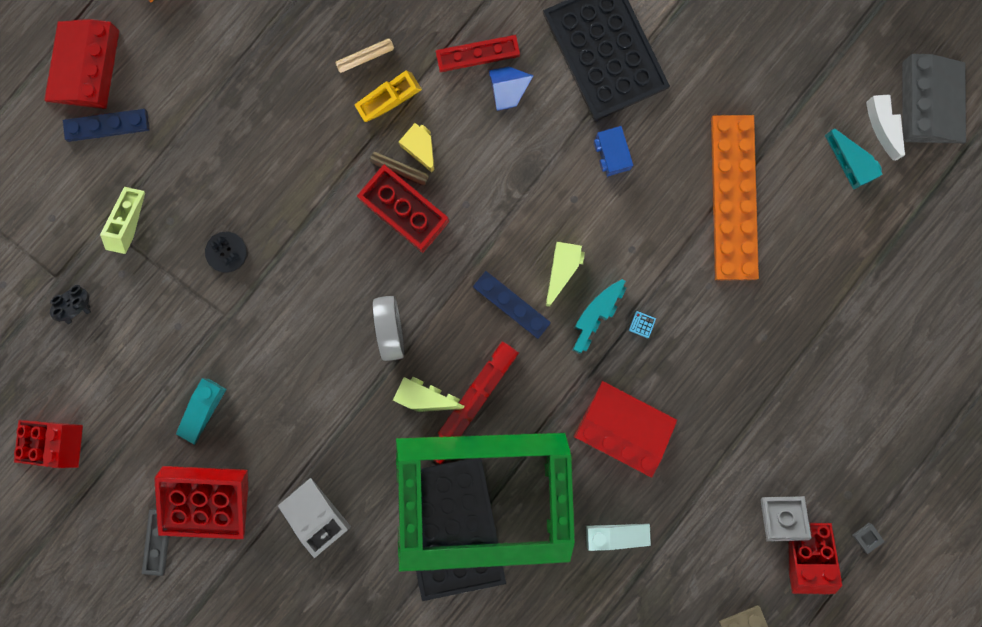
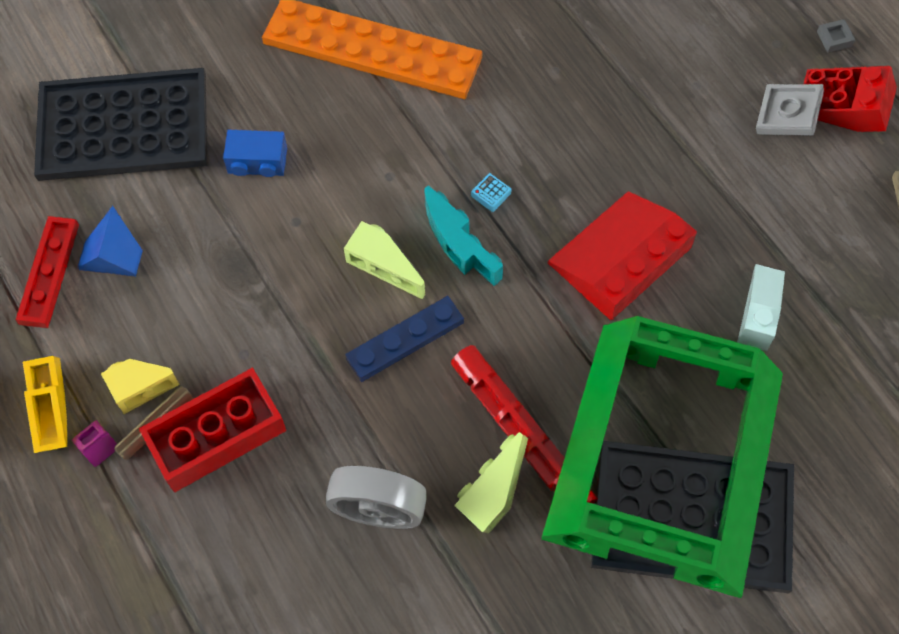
camera: 70 degrees left, 20 degrees down
(374, 137) = (95, 443): none -> magenta slope

